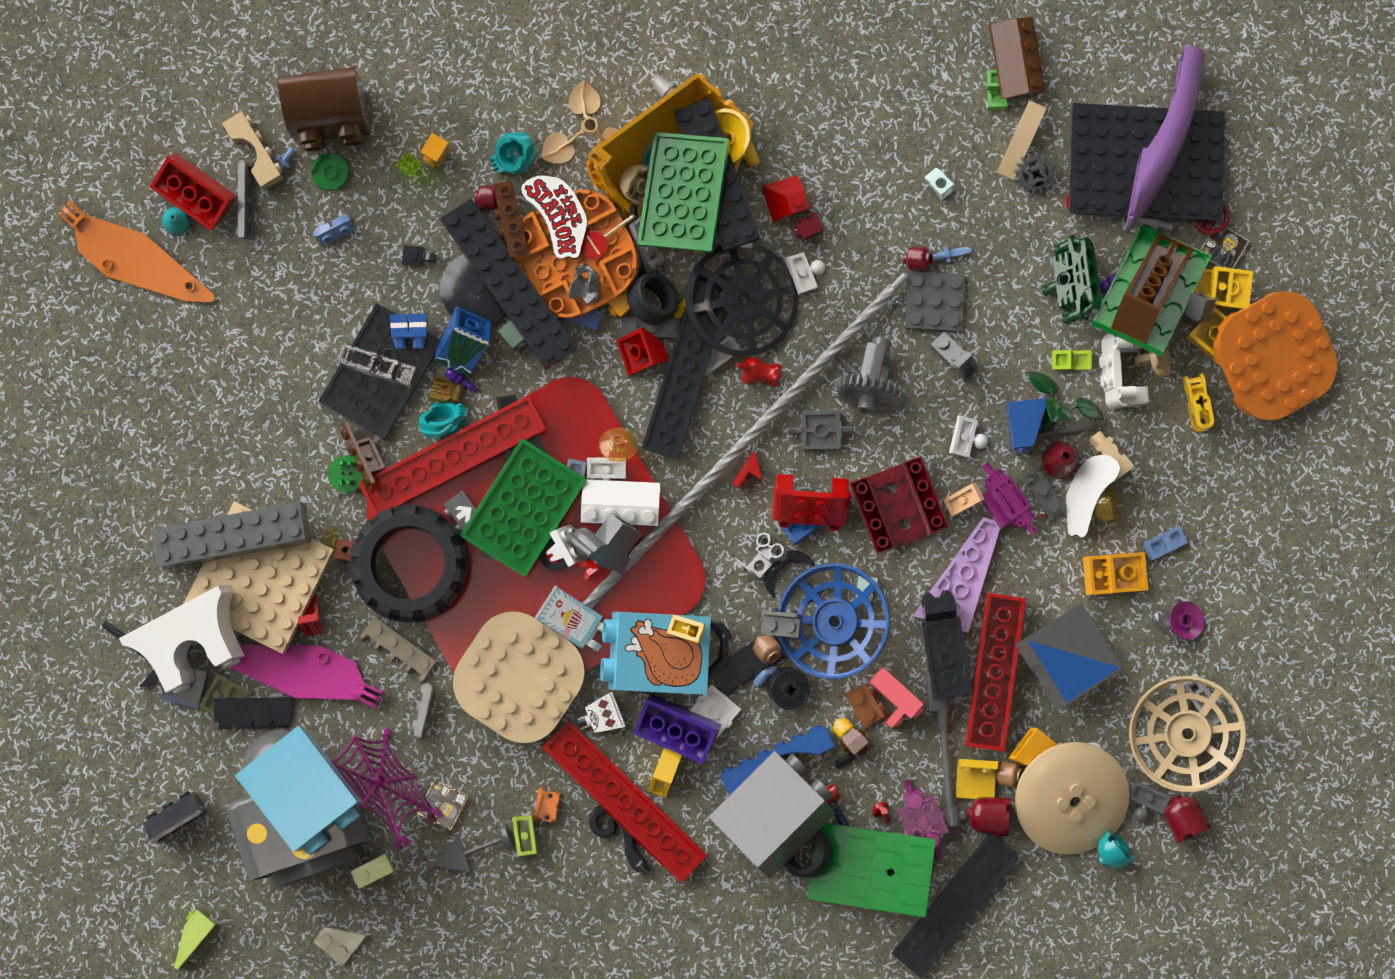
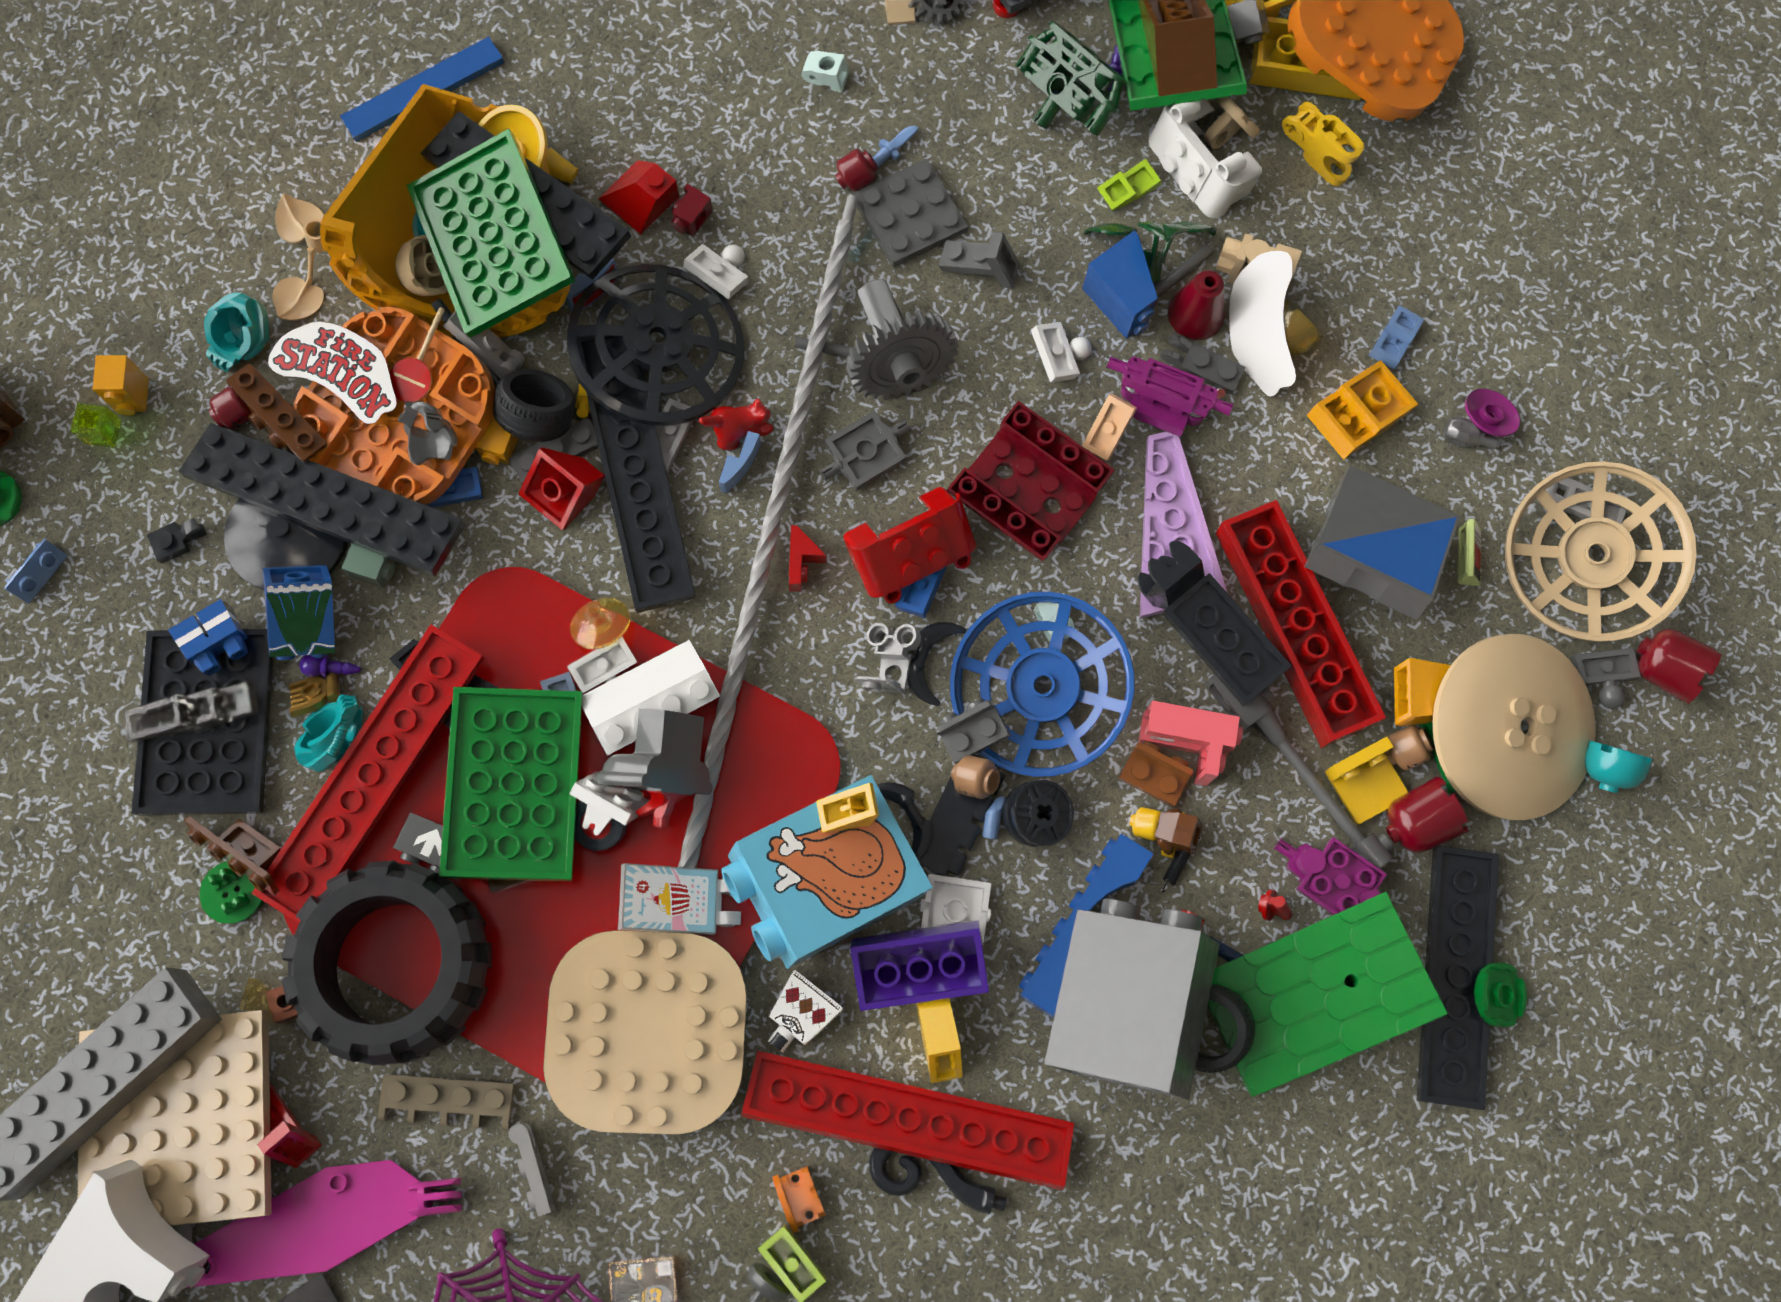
camera: 35 degrees left, 10 degrees down
(700, 56) = (445, 75): none -> blue tile
(742, 398) = (735, 467): none -> medium blue slope
(969, 928) = (1500, 994): none -> green tile
(1119, 691) = (1469, 554): none -> yellowish green slope

